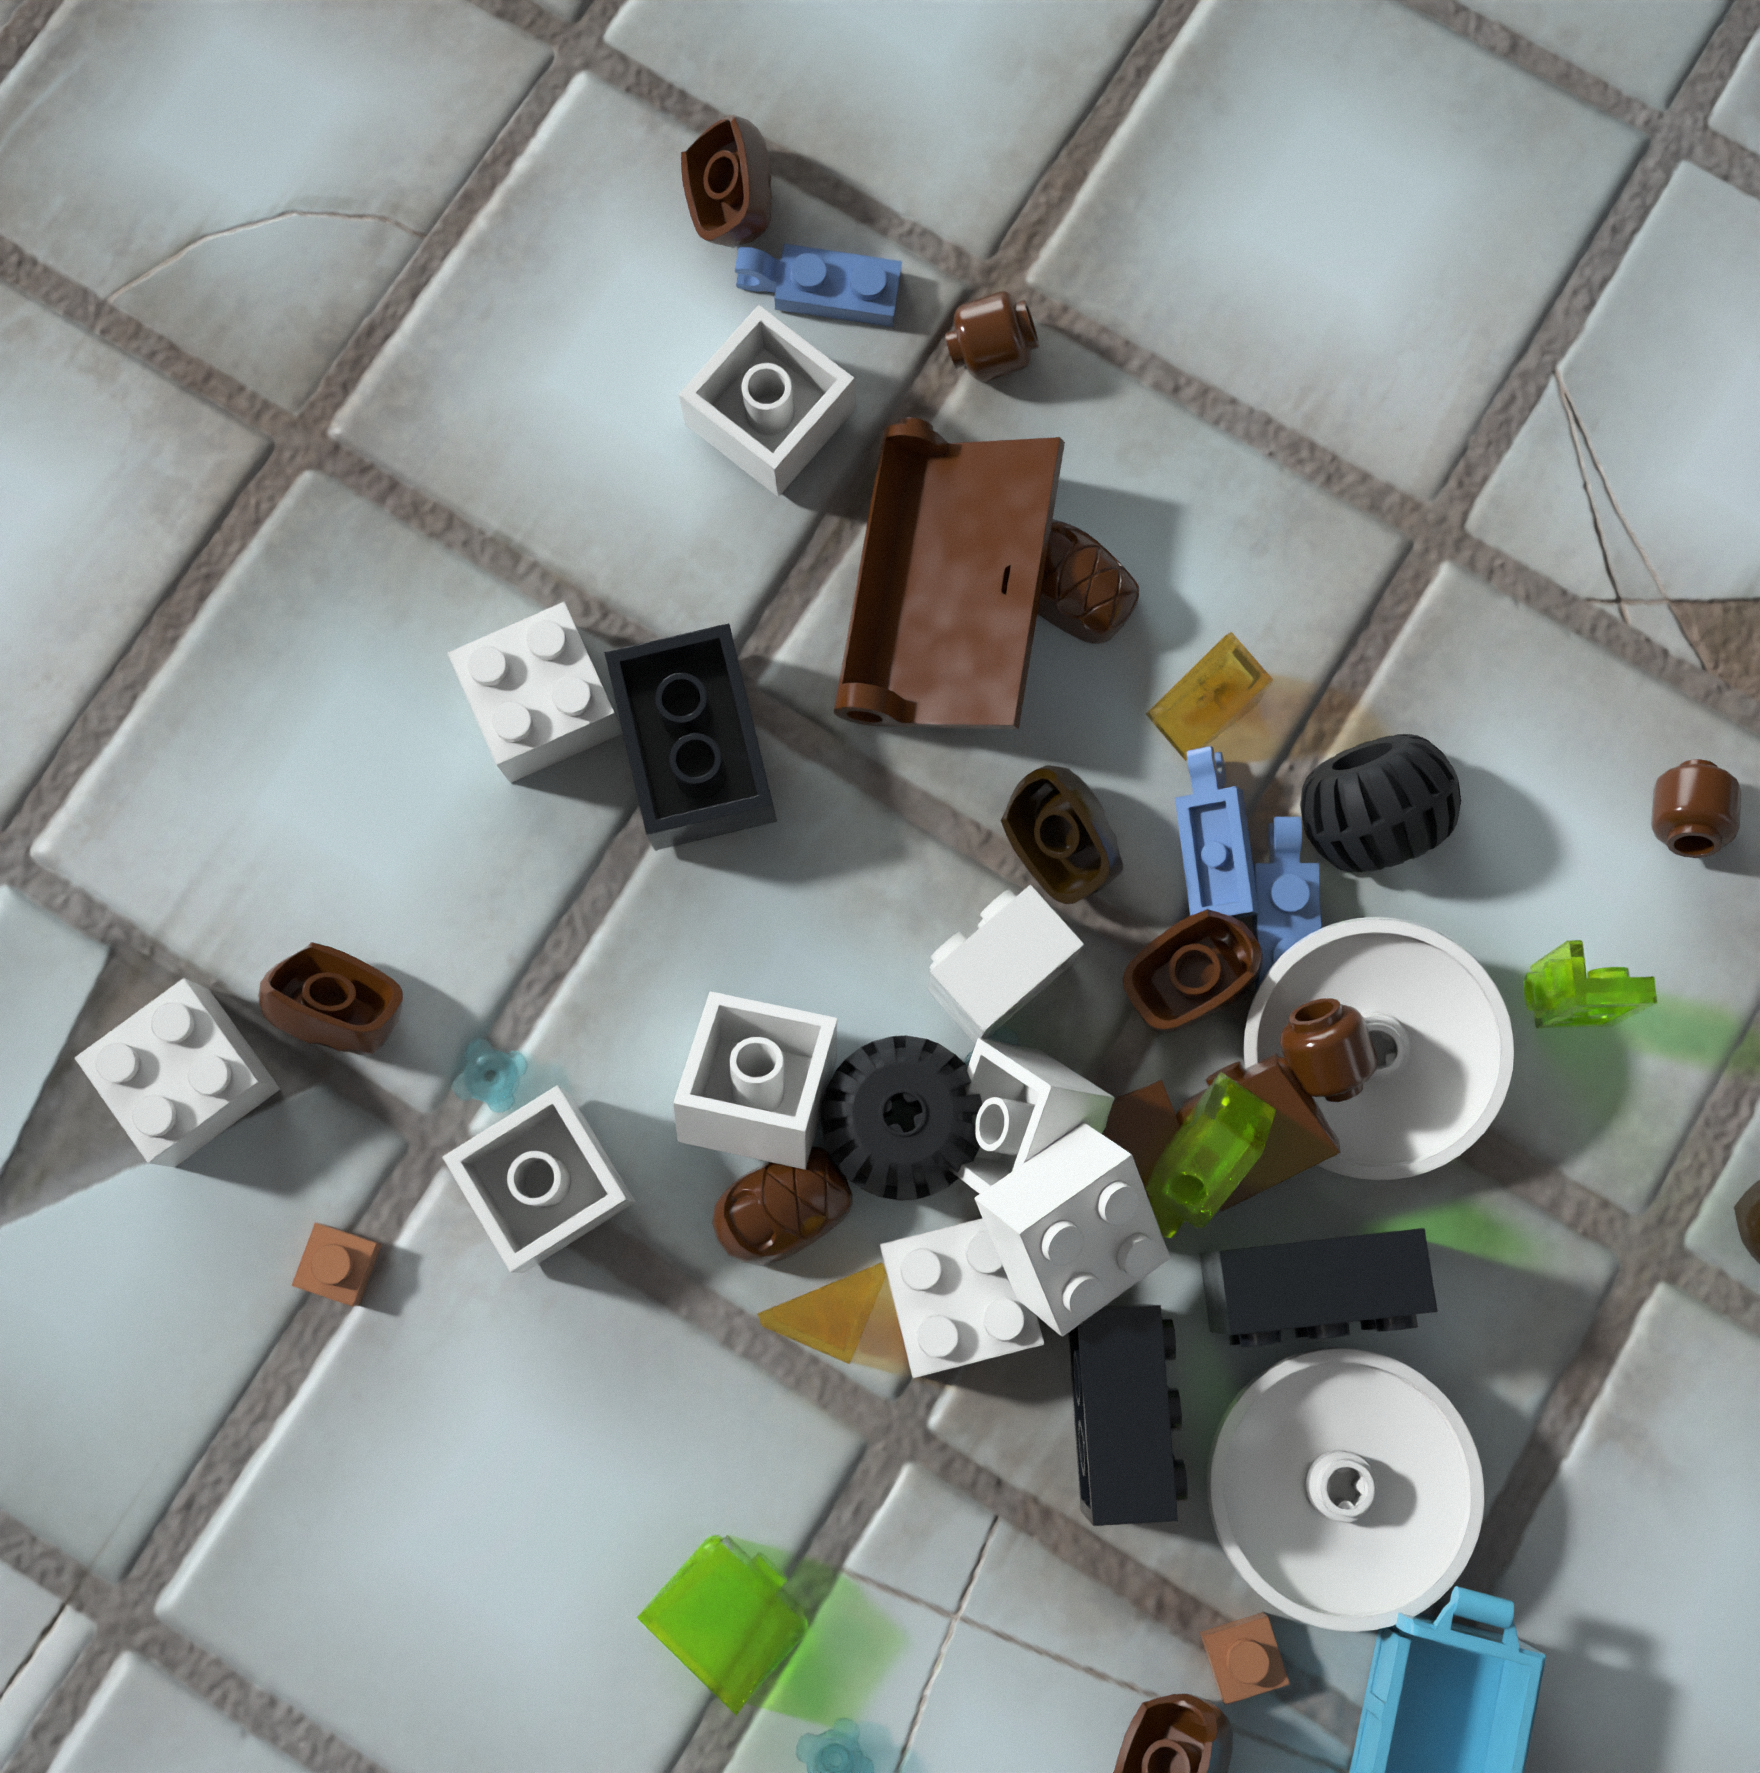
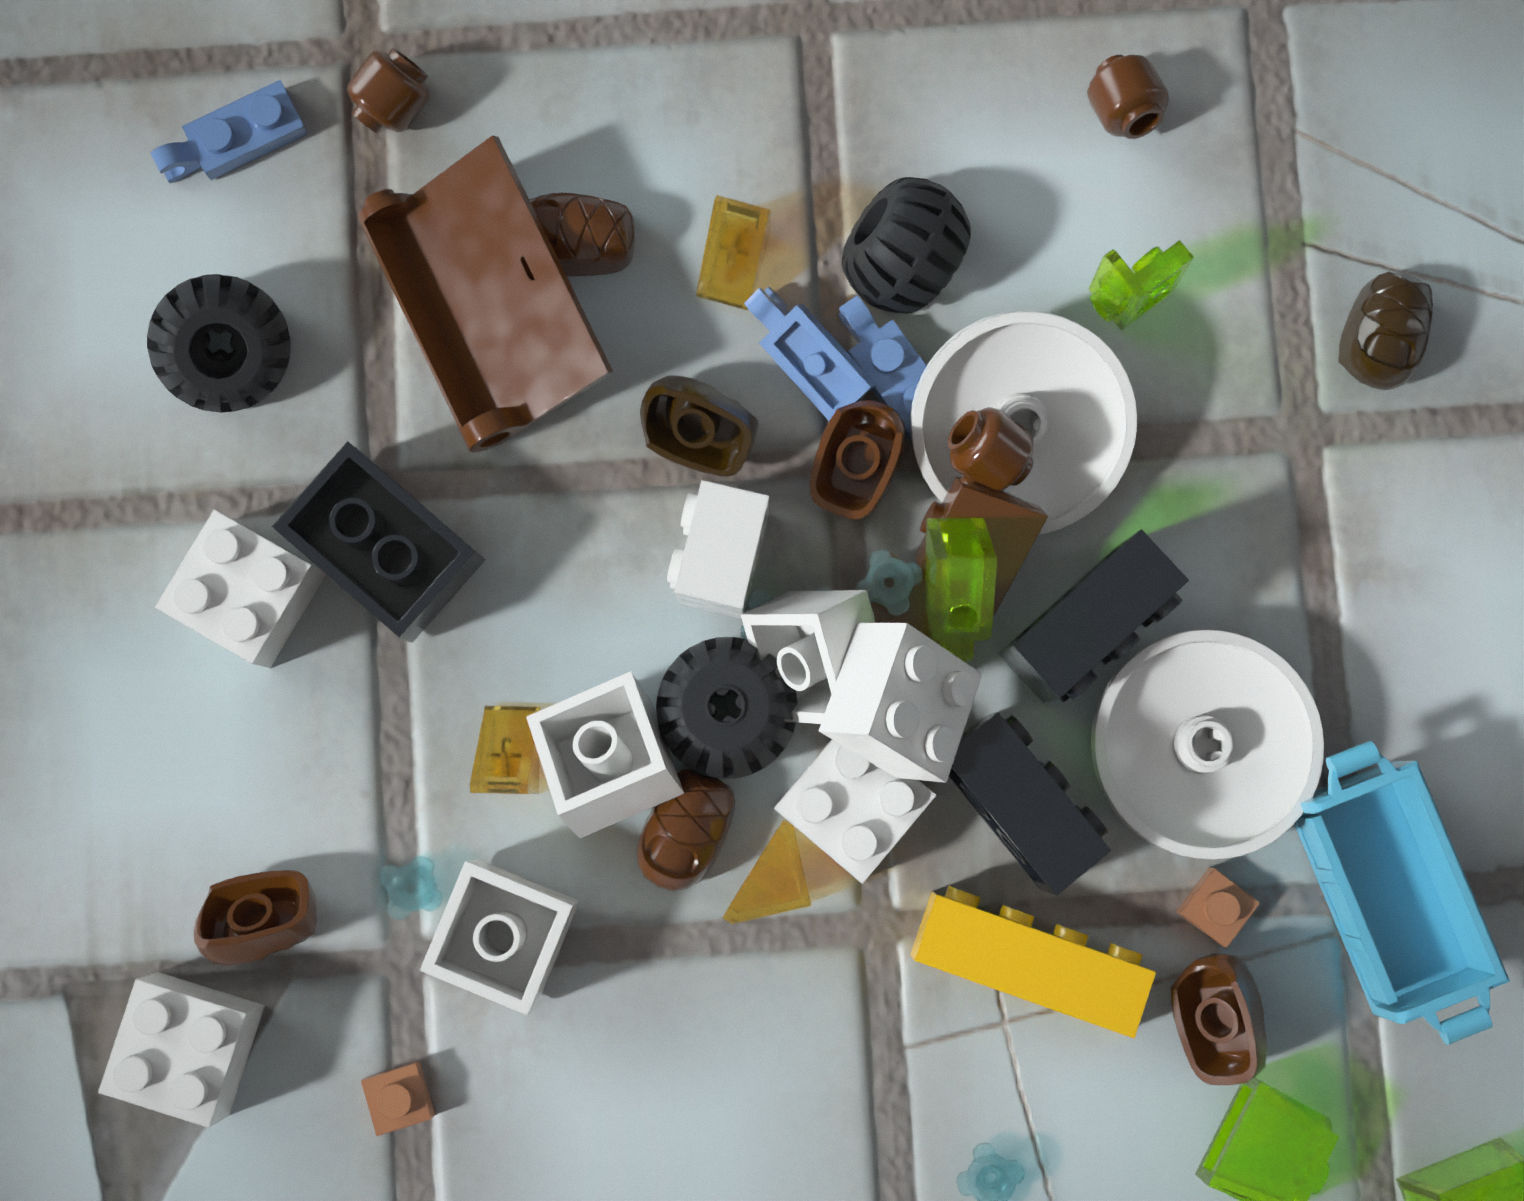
camera: 35 degrees left, 5 degrees up
(654, 492) = (218, 380): none -> black wheel
(666, 1013) = (506, 753): none -> clear yellow slope
(727, 1618) = (849, 1139): clear neon green torso -> none
(728, 182) = (106, 107): reddish brown piece -> none
(768, 400) = (264, 240): white brick -> none
(1024, 1580) = (1032, 963): none -> yellow brick
(1160, 1112) = (904, 575): none -> clear light blue plate

